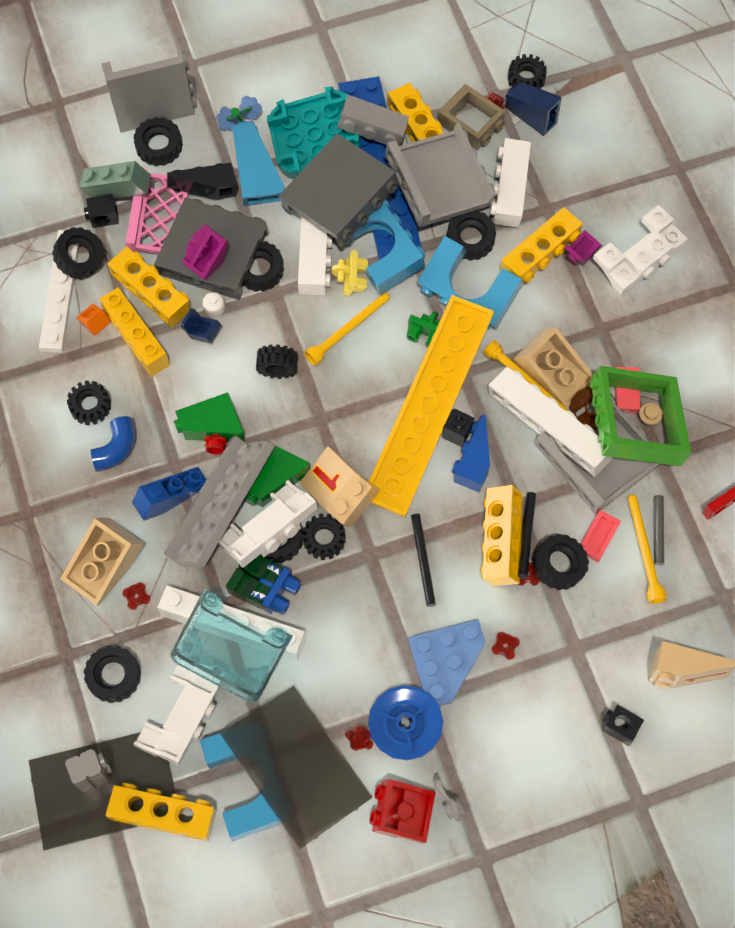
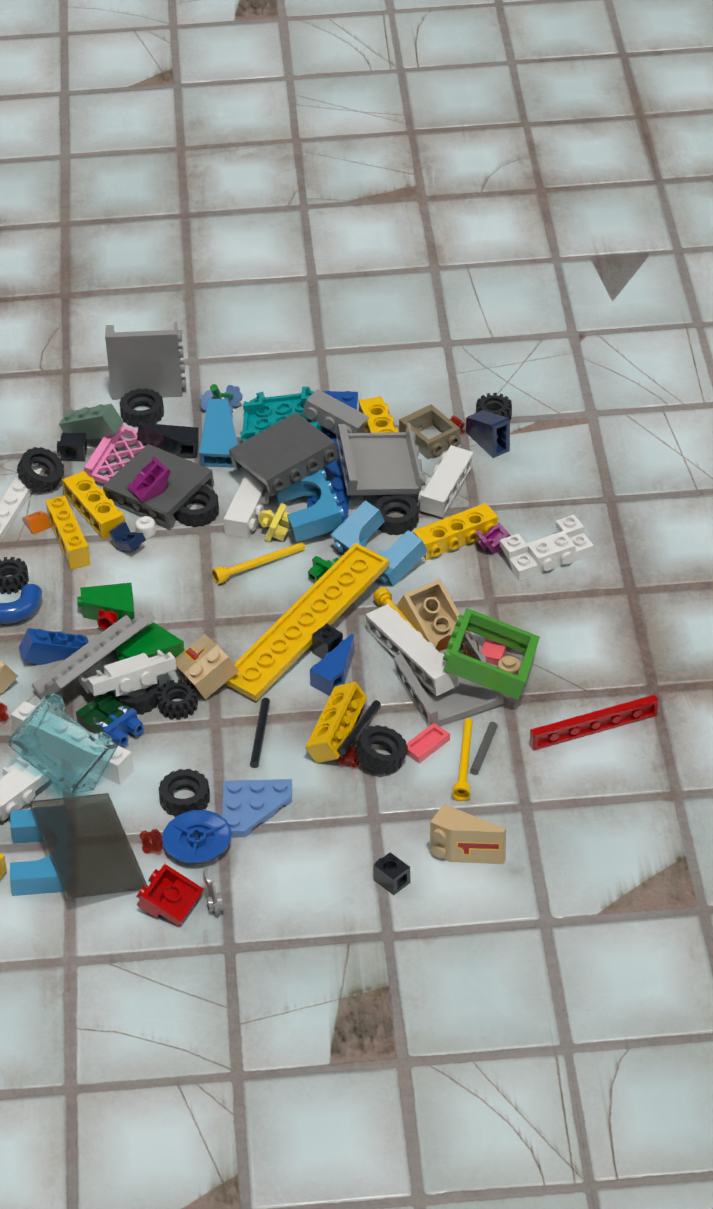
camera: 15 degrees right, 25 degrees down
(276, 361) = (187, 562): black tyre -> none
(367, 645) = (184, 779): none -> black tyre
(512, 642) = (309, 802): clear red plate -> none

